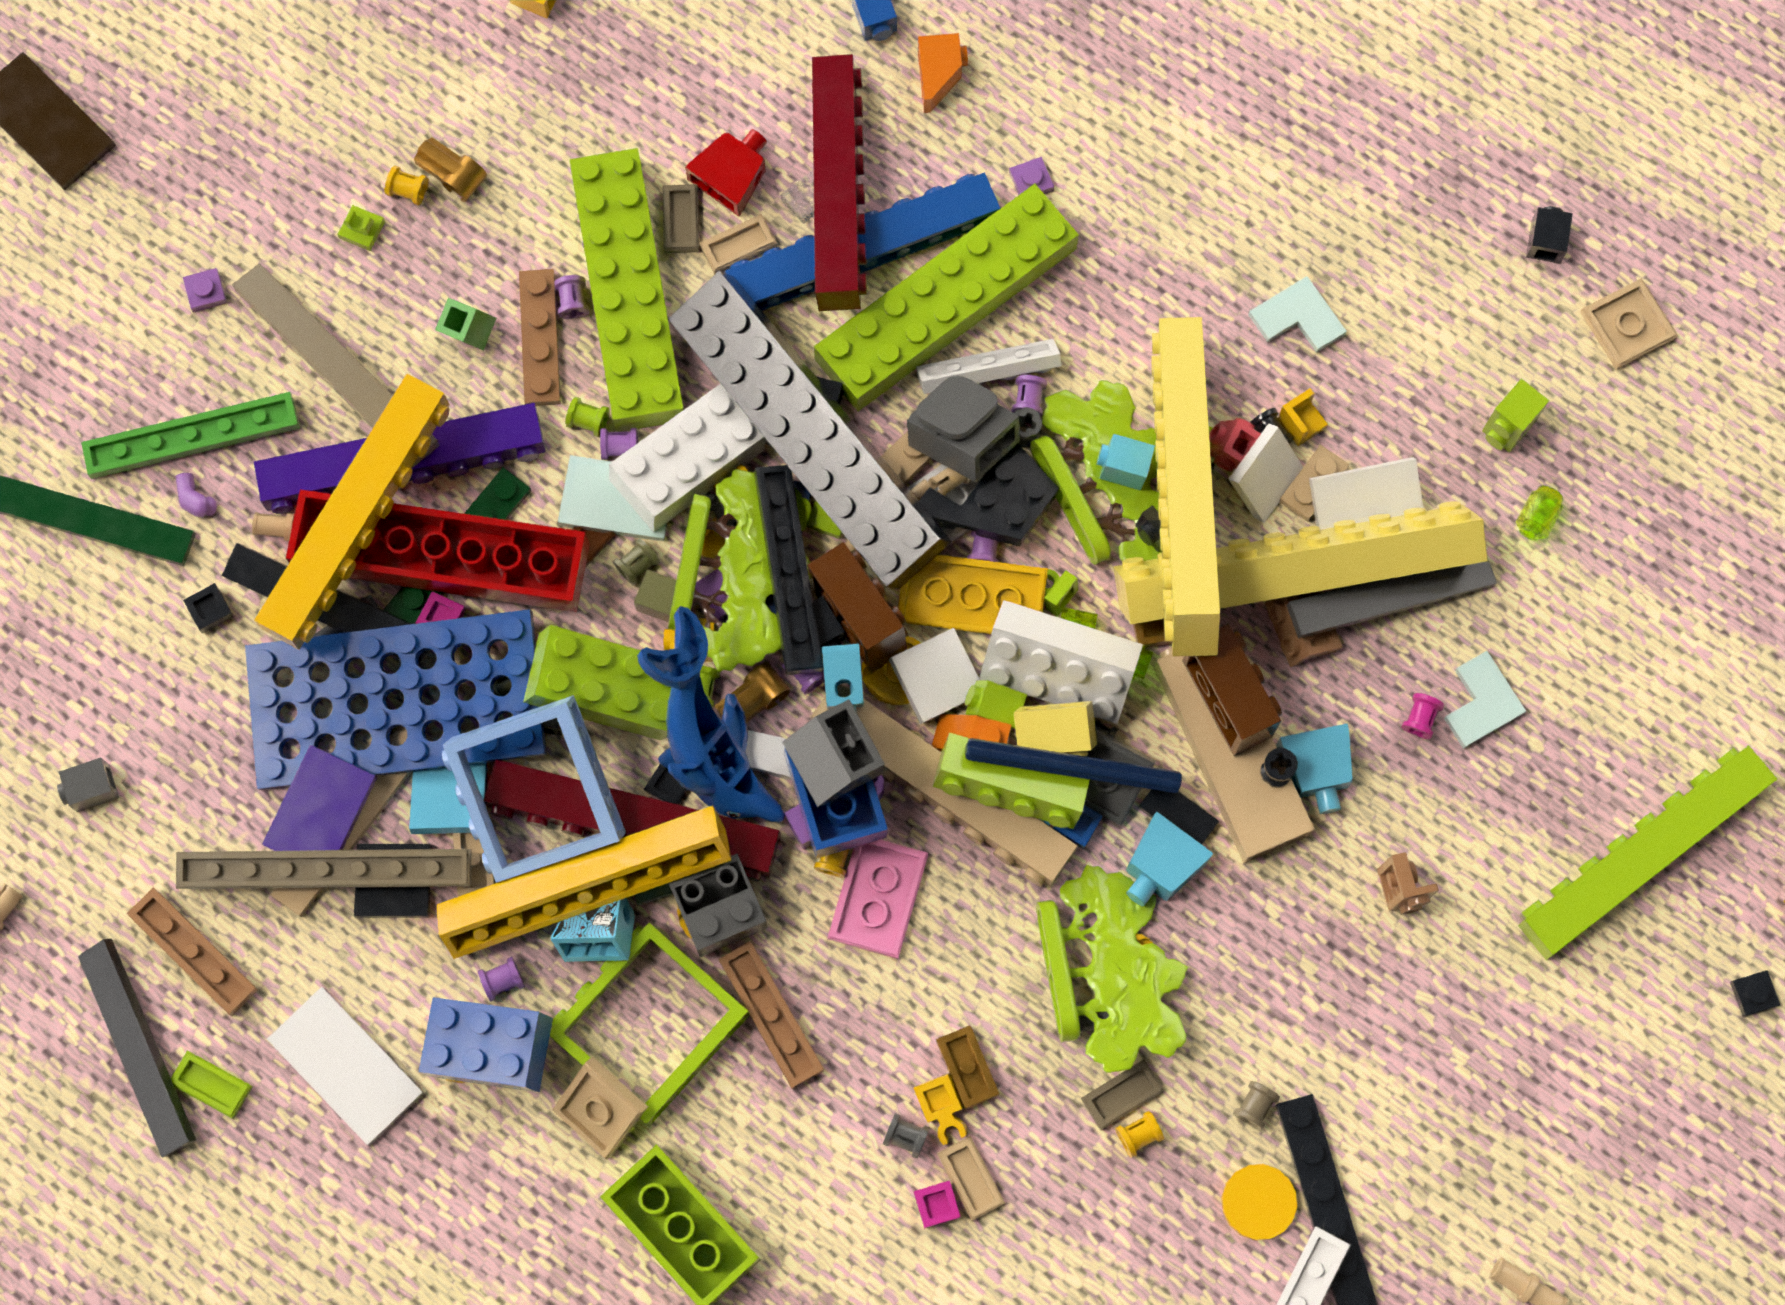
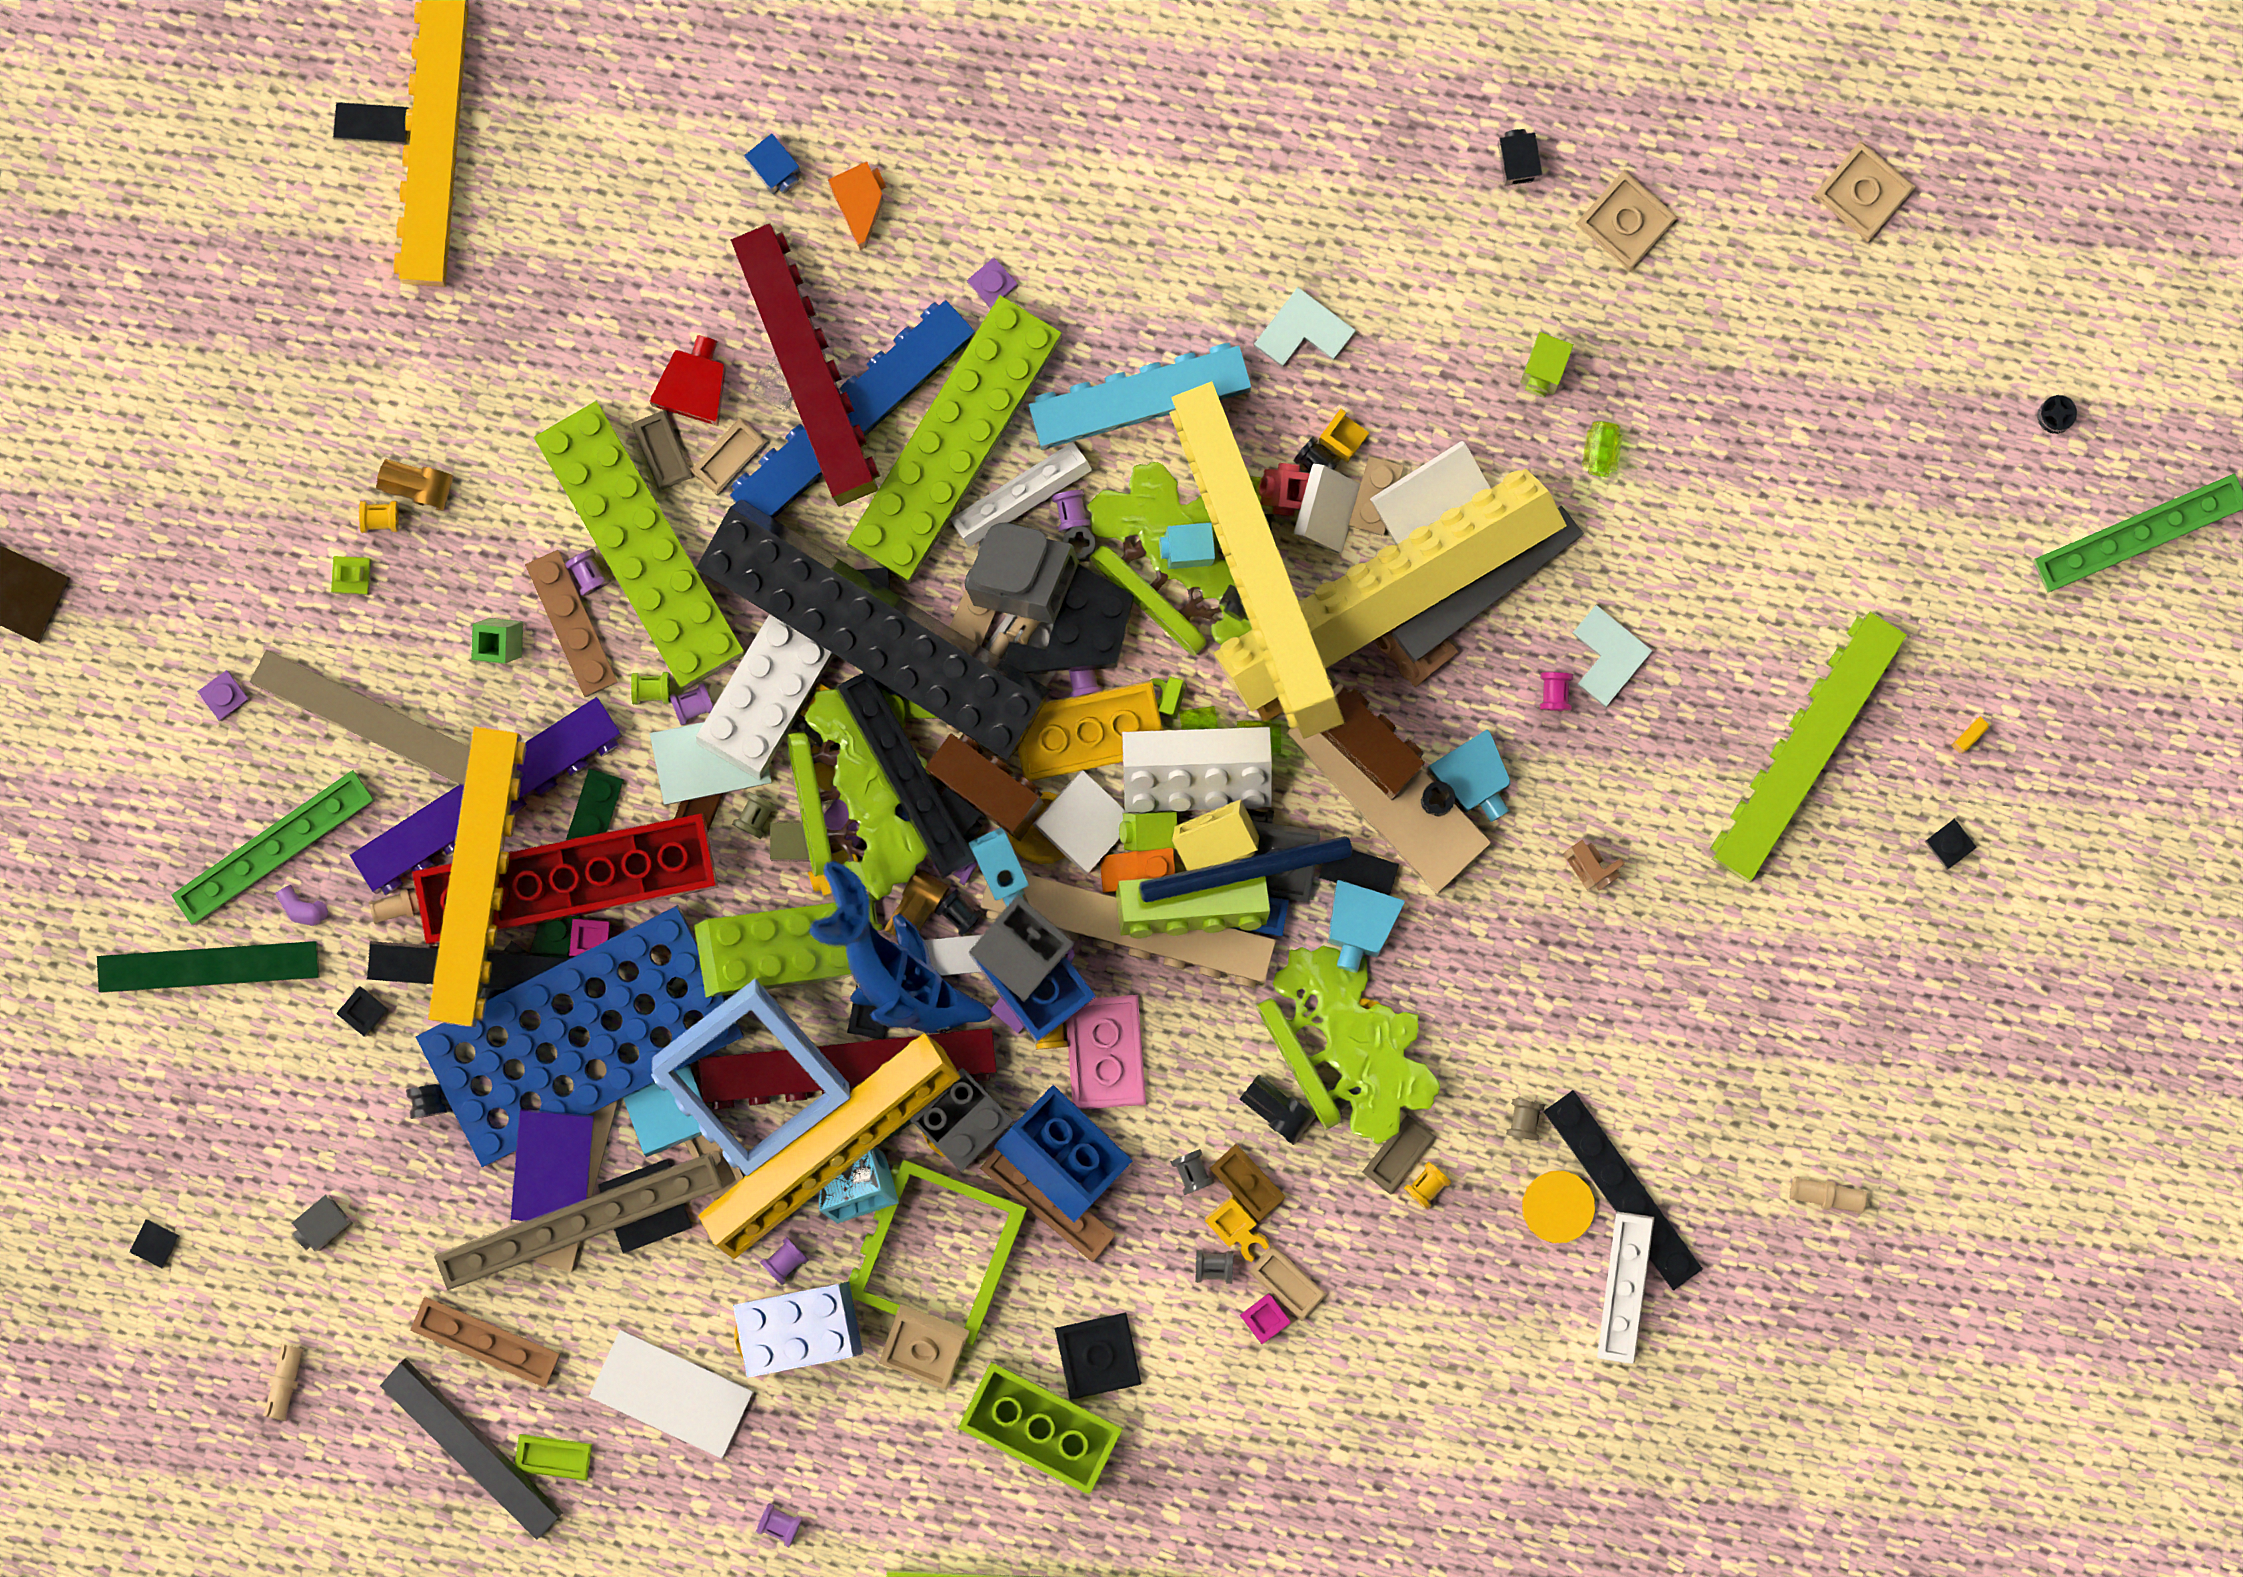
camera: 20 degrees left, 10 degrees up
(231, 709) = (426, 1101): none -> black wheel
(395, 1230) = (779, 1525): none -> medium lavender bush
(763, 1181) = (1098, 1356): none -> black tile
(788, 714) = (959, 912): none -> black bush
(802, 971) = (1063, 1153): none -> blue brick
(918, 1037) = (1192, 1172): none -> dark grey bush
(1023, 1012) = (1282, 1113): none -> black piece
(1121, 318) = (1135, 398): none -> medium azure brick

